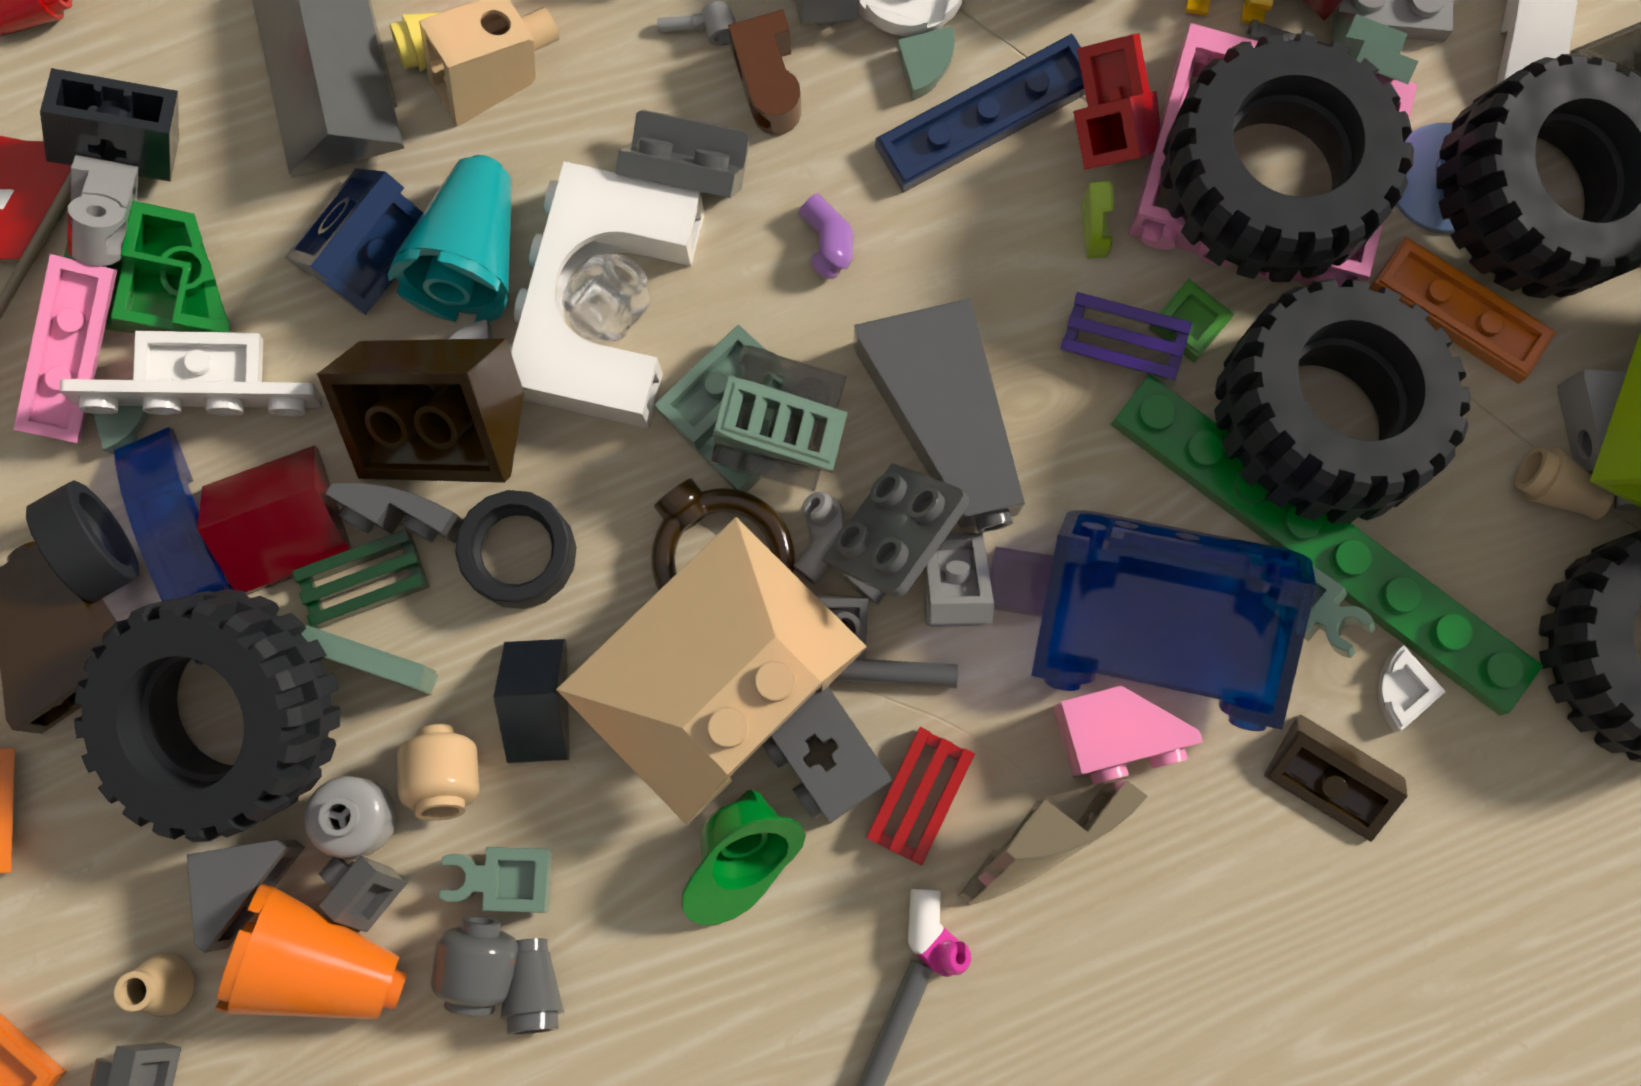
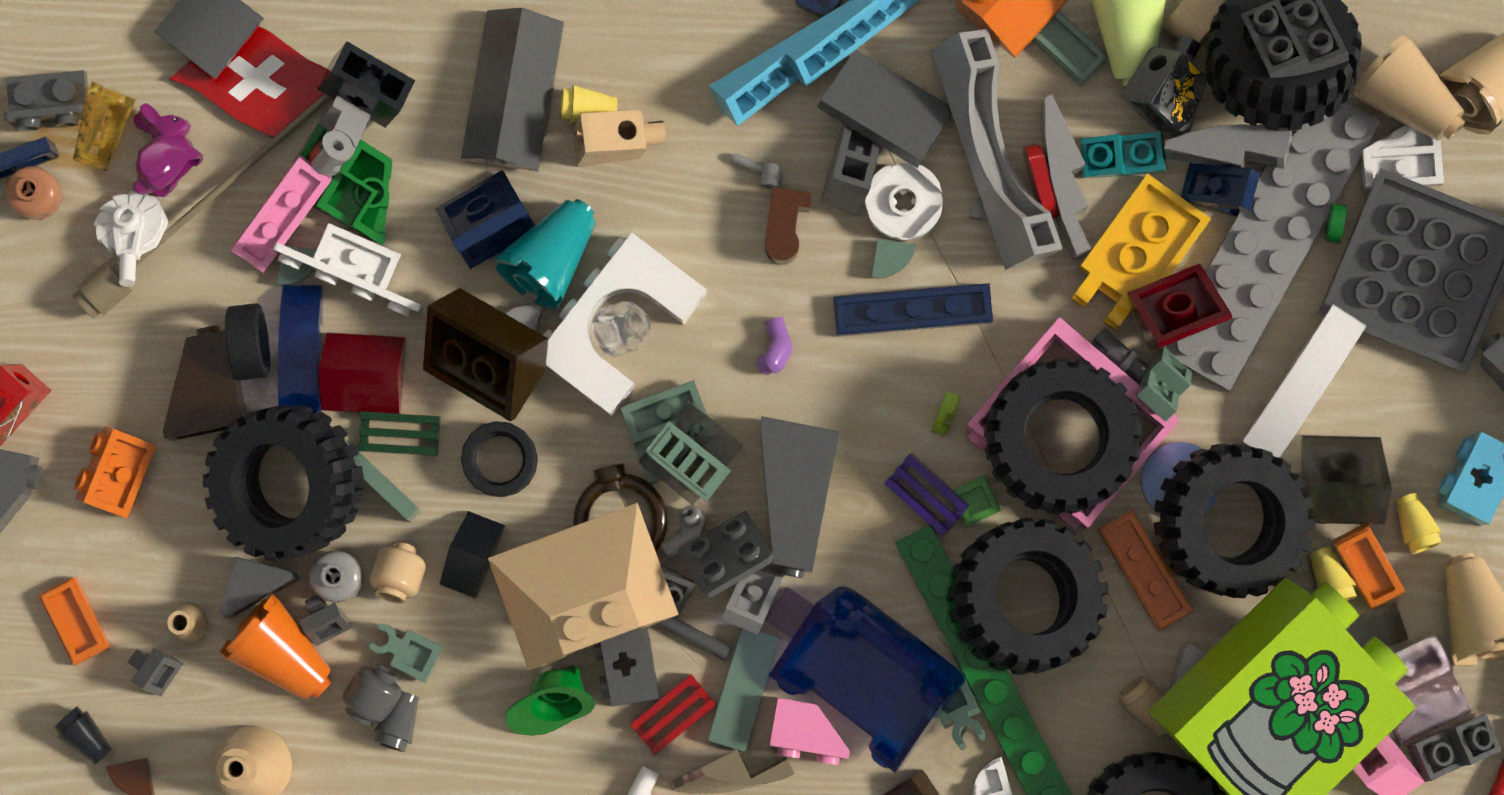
camera: 25 degrees right, 5 degrees up
(385, 506) = (429, 397): dark grey slope -> none
(685, 154) = (708, 258): dark grey bracket -> none
(1002, 715) = (743, 689): none -> sand green tile
(1121, 110) = (991, 353): red brick -> none

